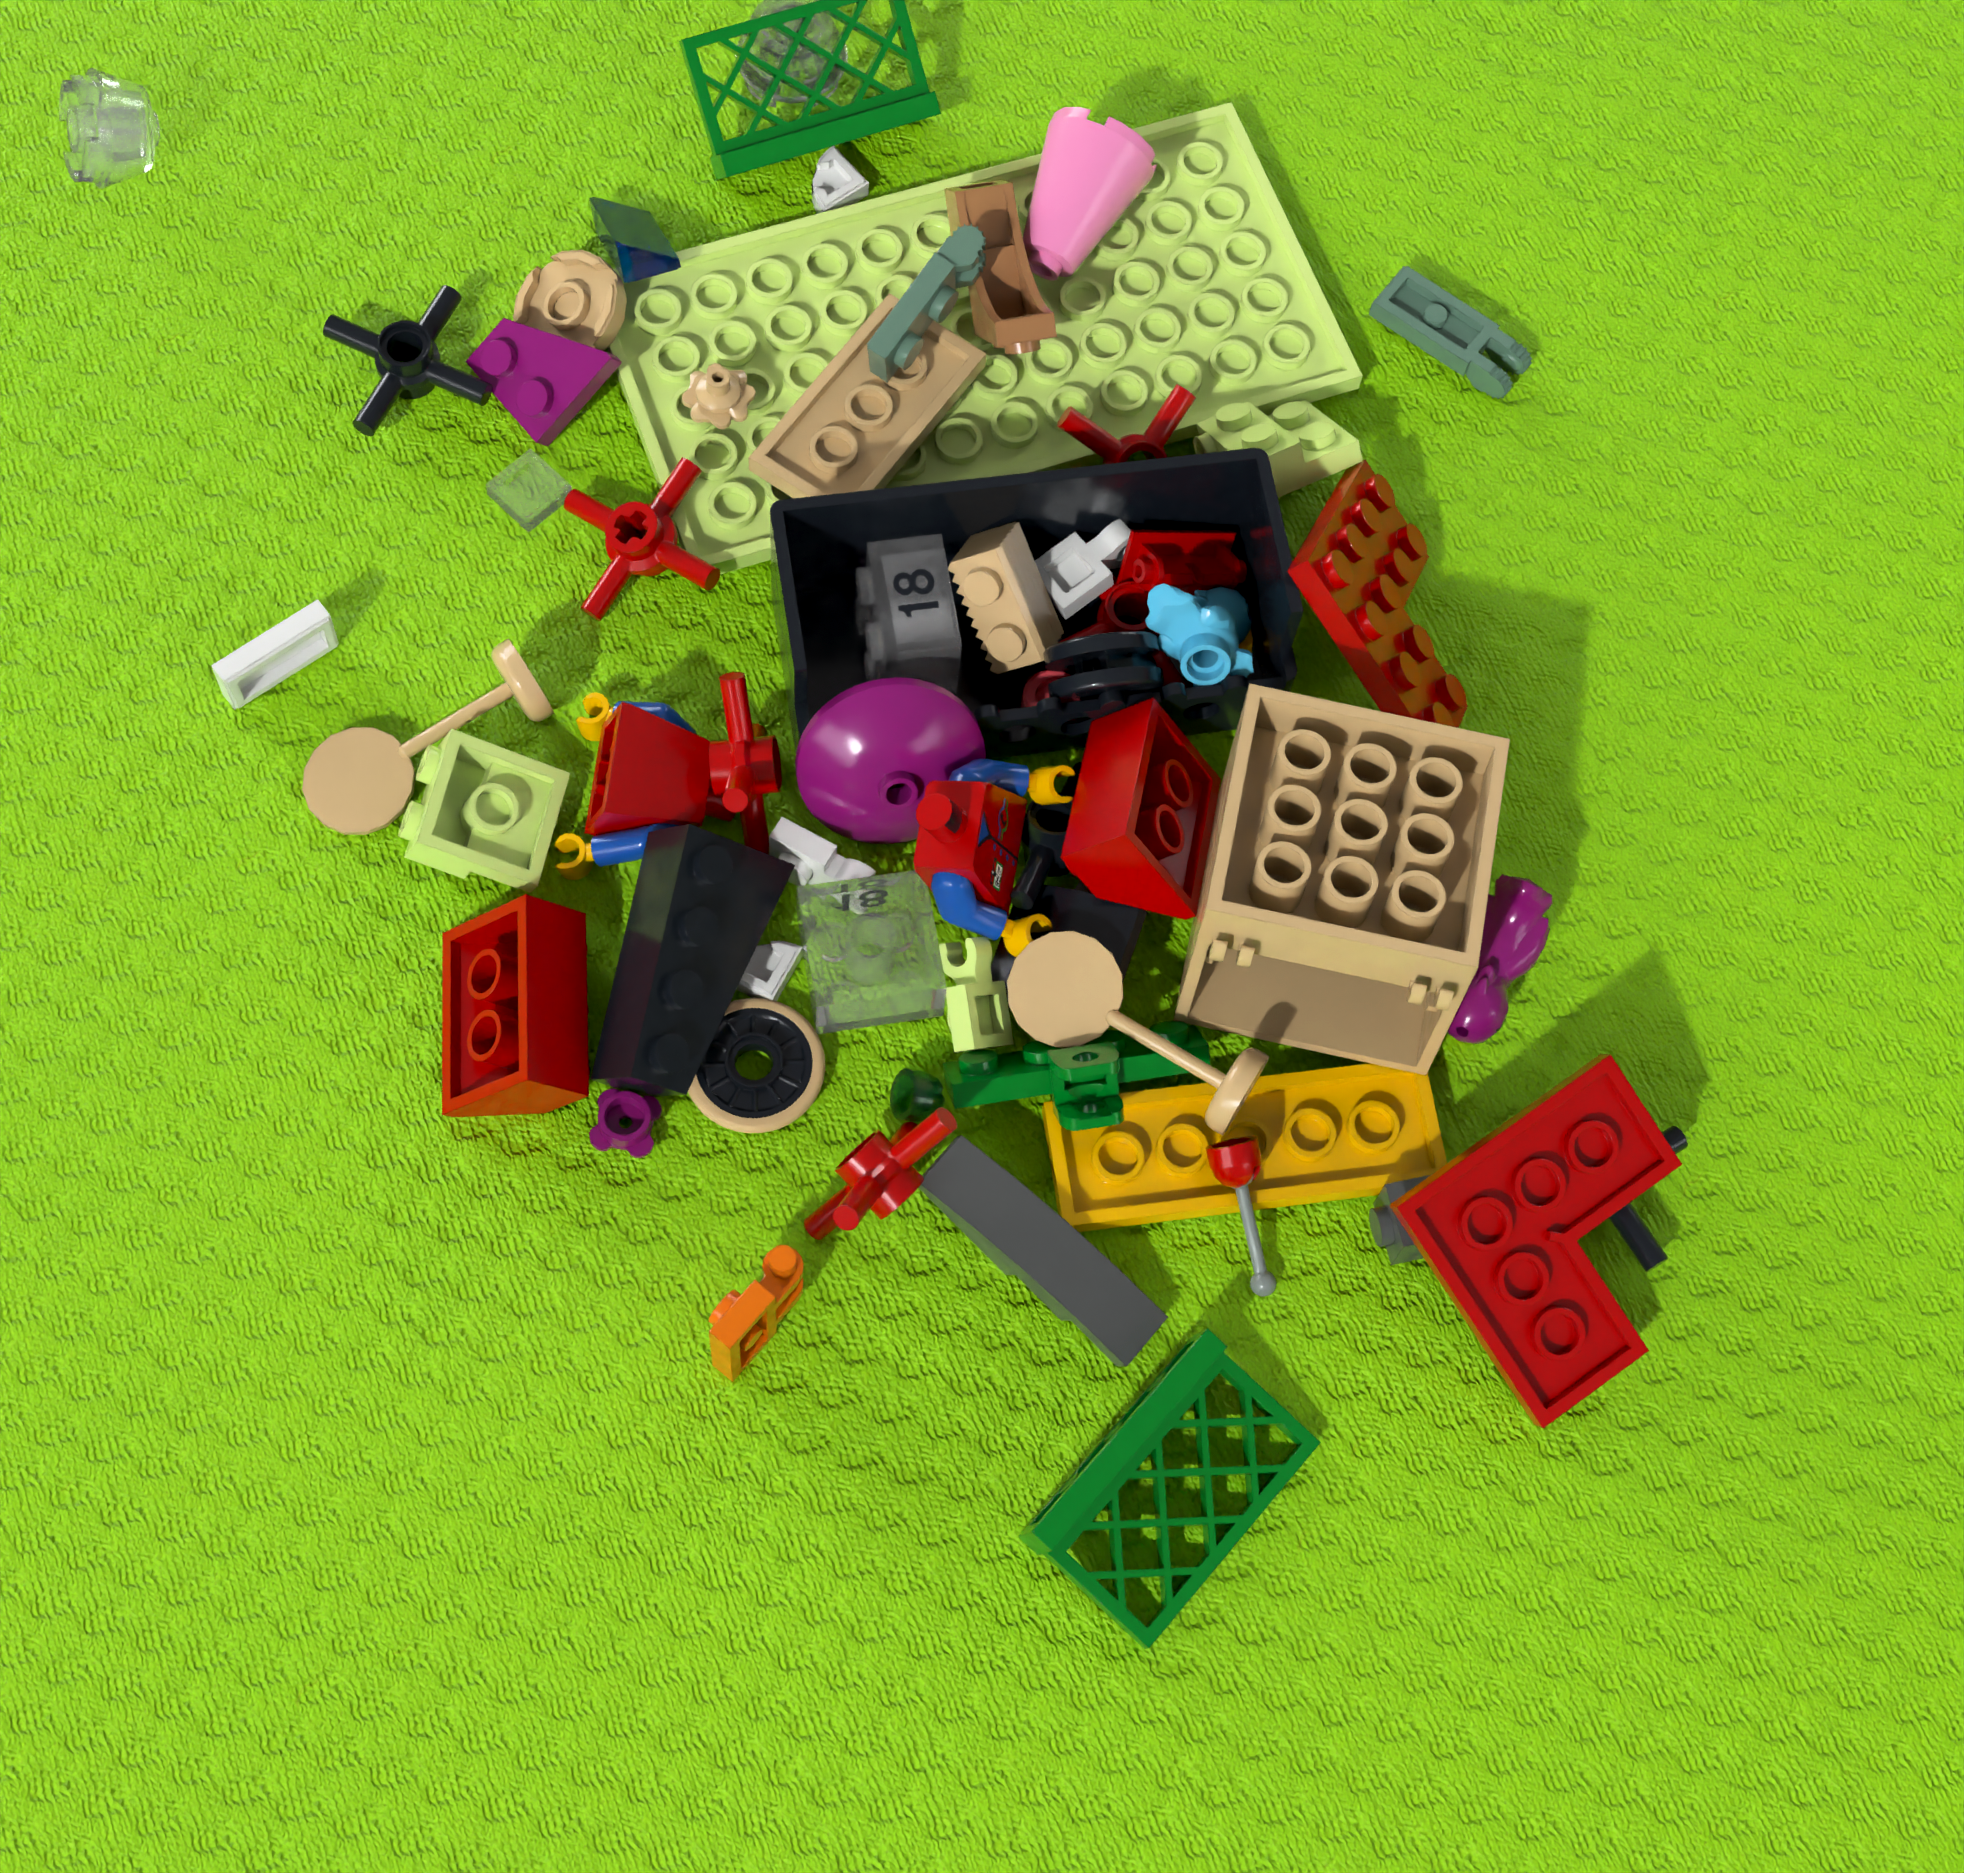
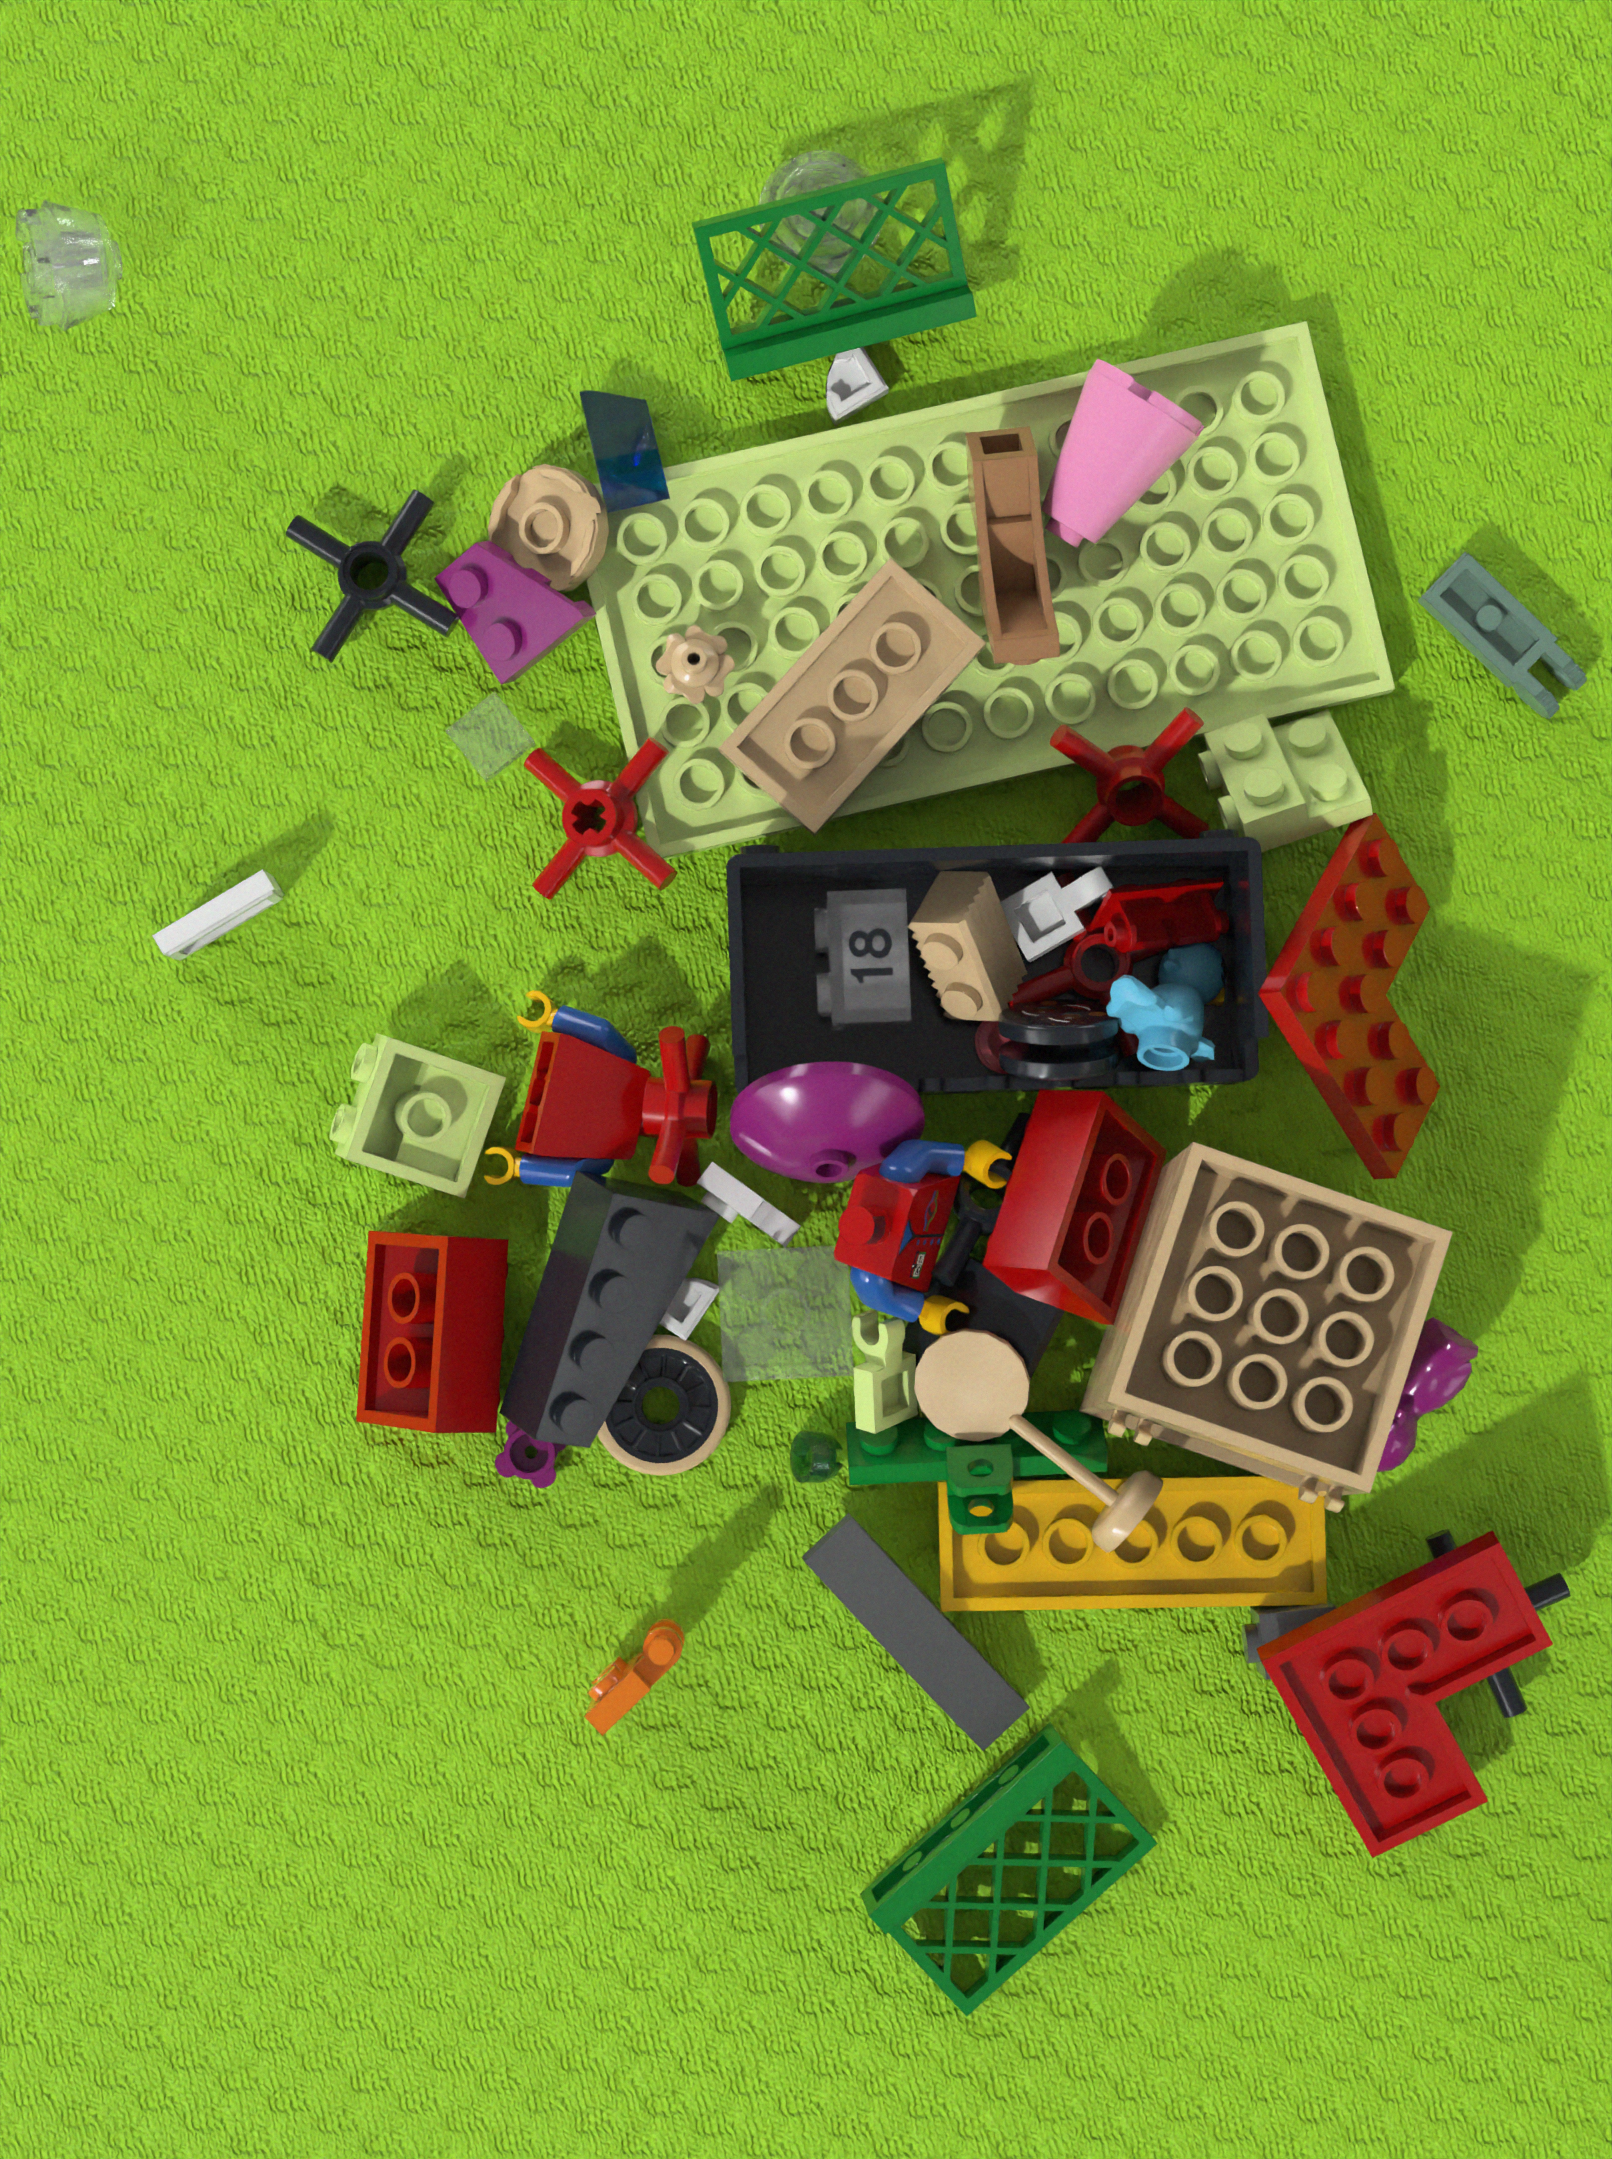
camera: 15 degrees right, 20 degrees up
(366, 776) = (302, 1055): tan piece -> none
(880, 1174) = (766, 1556): red bar -> none
(926, 300) = (928, 593): sand green hinge -> none
(1236, 1165) = (1114, 1578): hinge -> none

